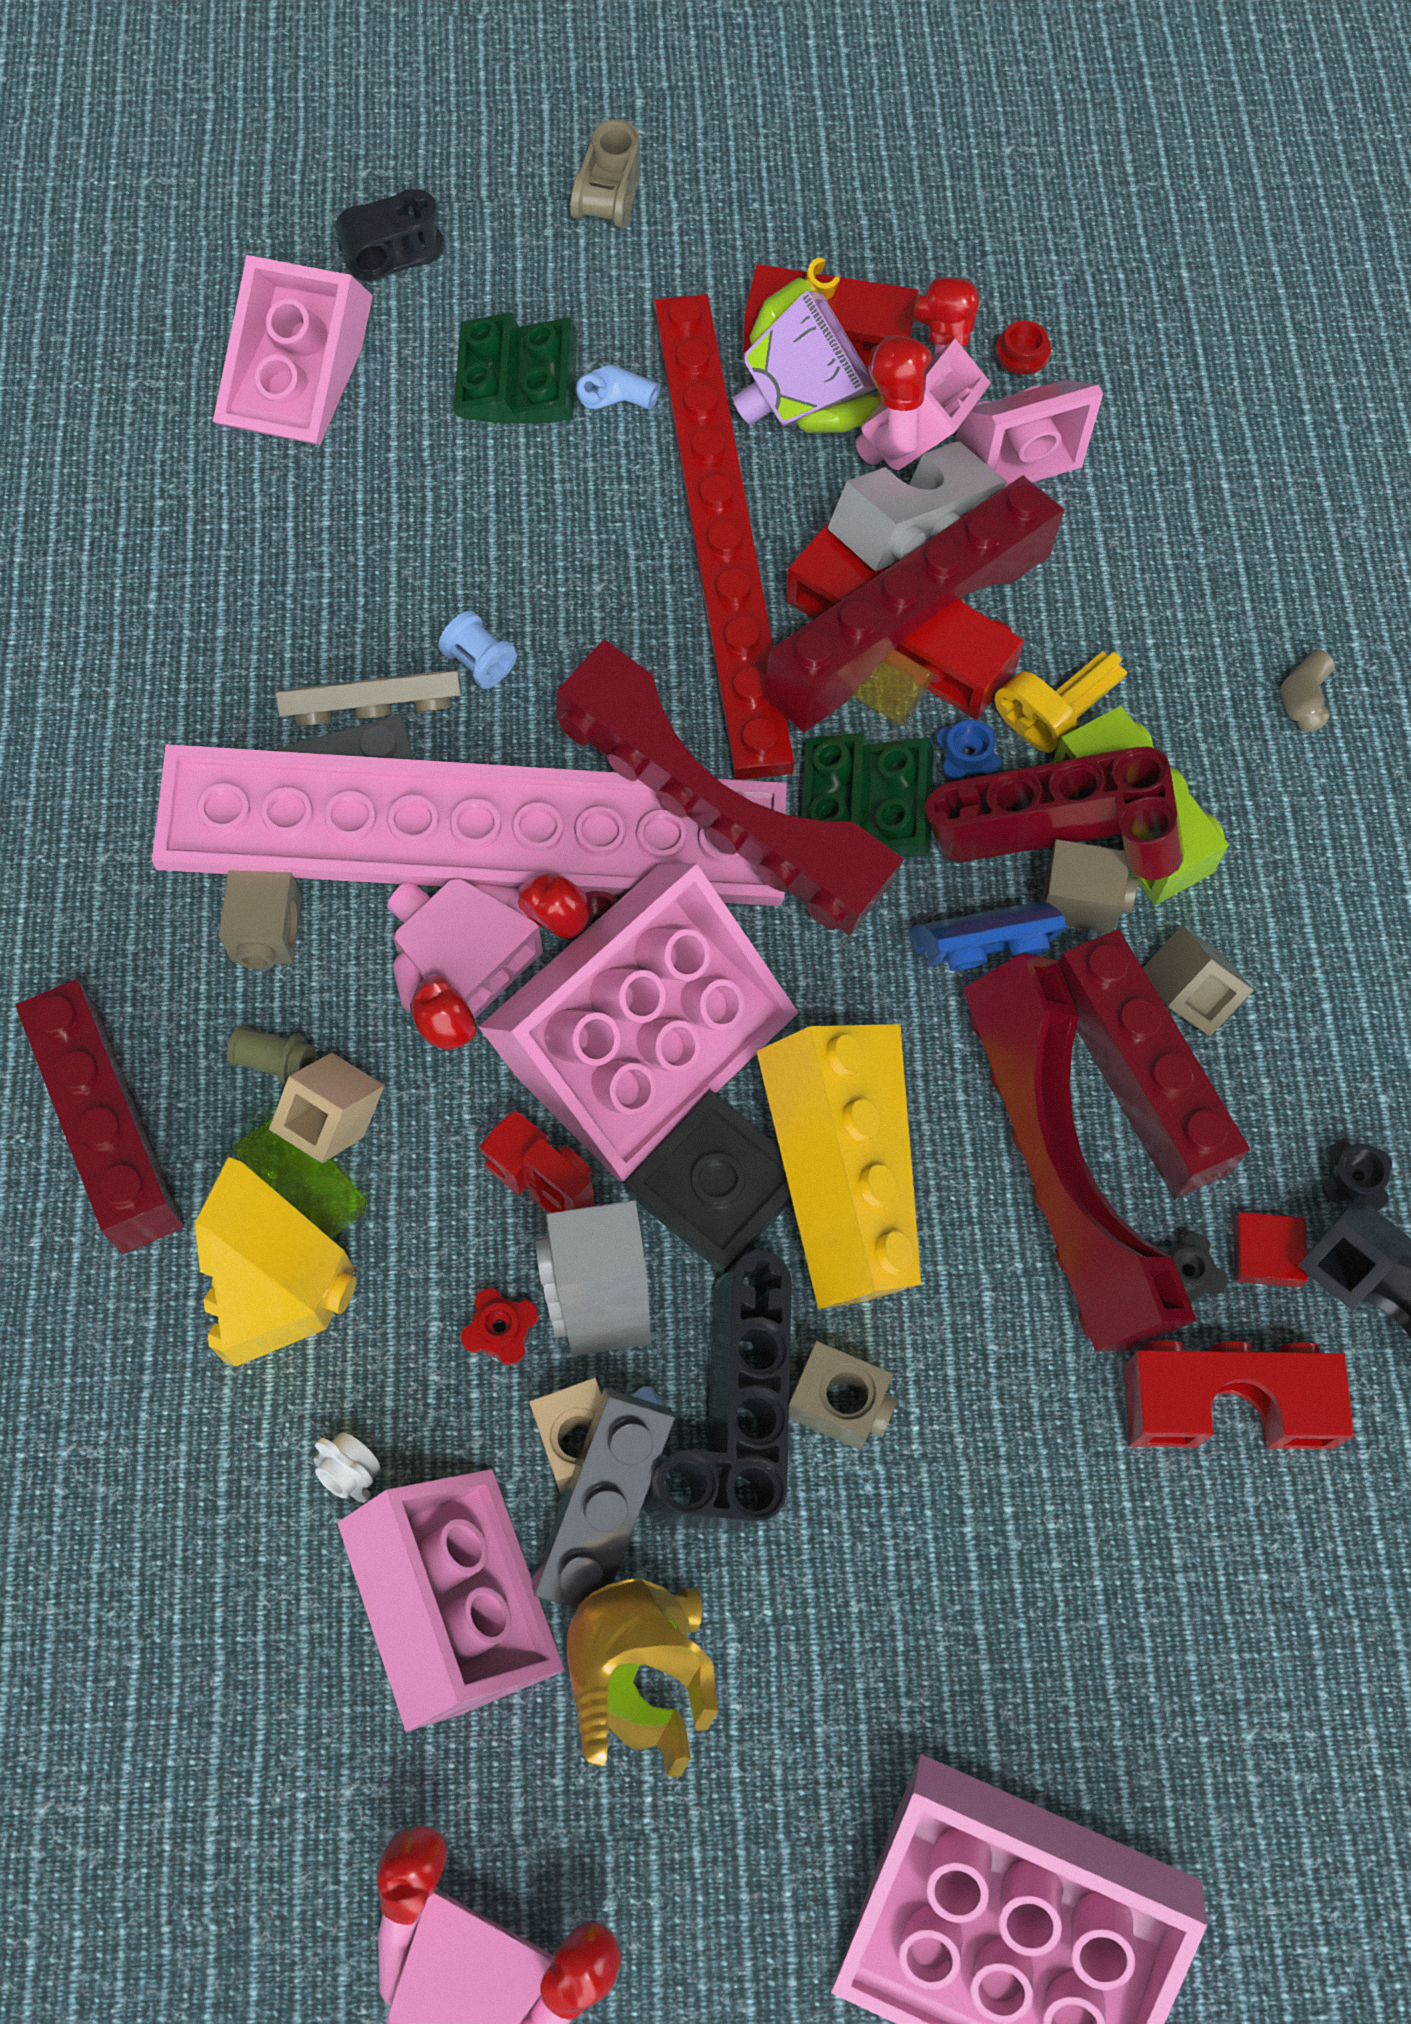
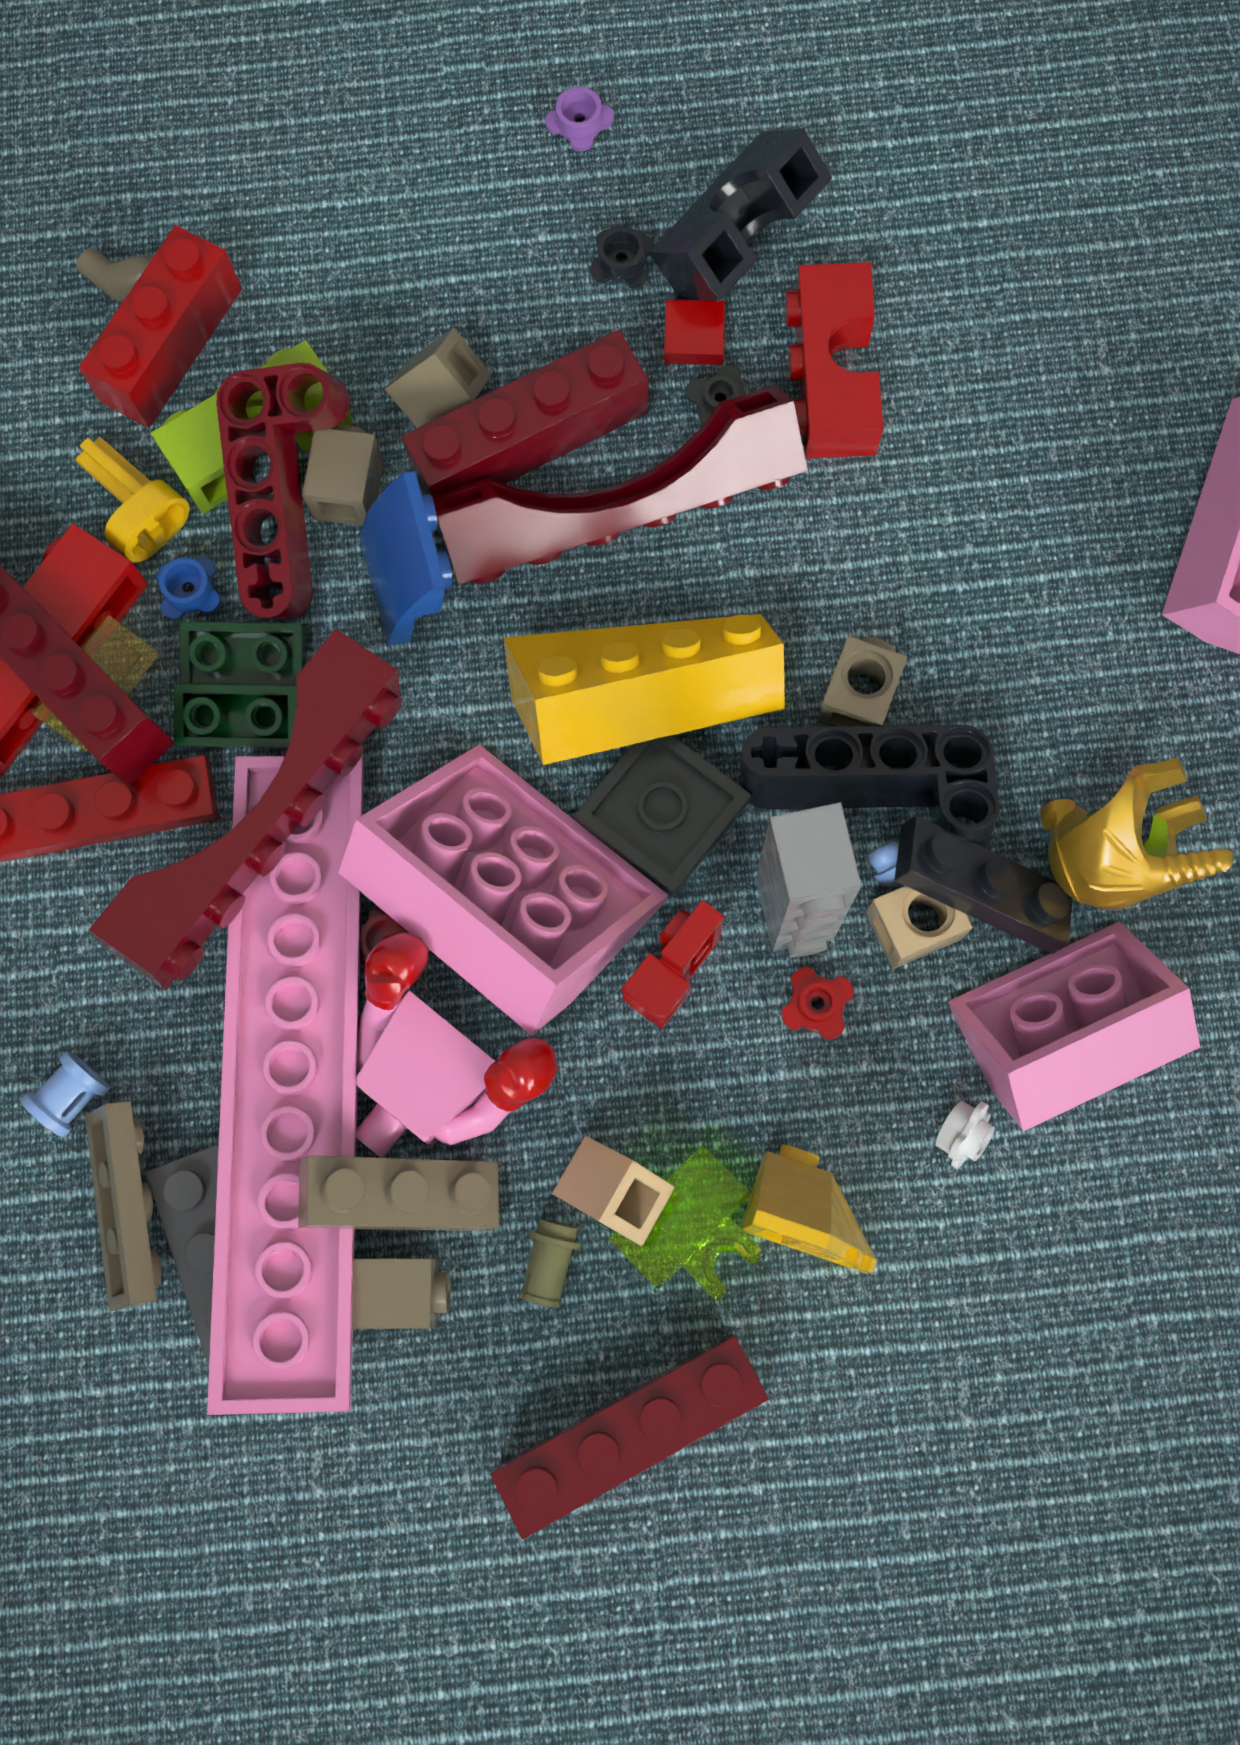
camera: 85 degrees left, 10 degrees up
(345, 915) = (397, 1194): none -> dark tan plate
(1245, 721) = (161, 326): none -> red brick

